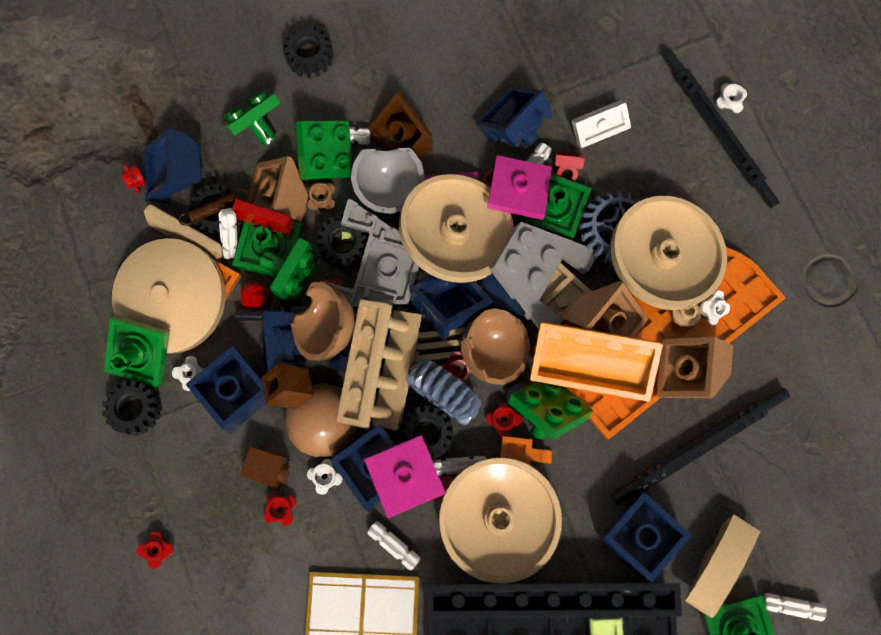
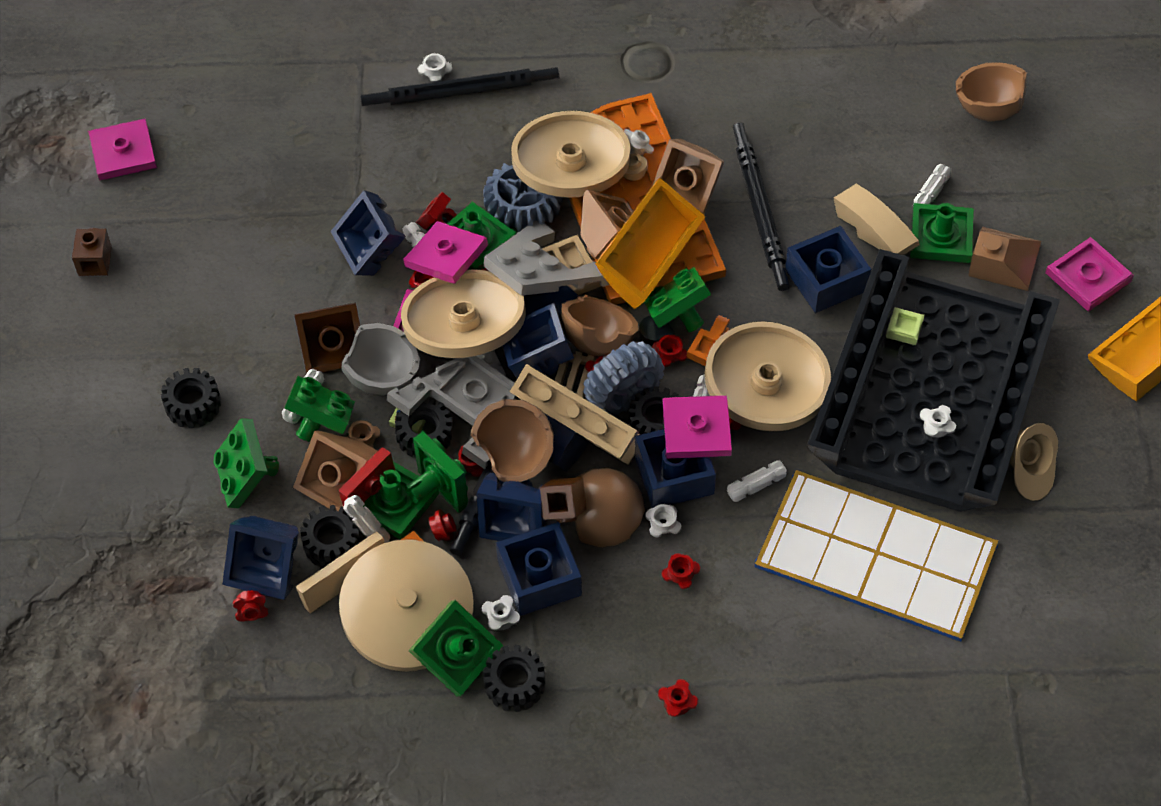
camera: 70 degrees left, 20 degrees down
(212, 207) = (331, 525): reddish brown piece -> none
(266, 466) = (632, 566): reddish brown brick -> none
(601, 123) = (409, 174): white plate -> none

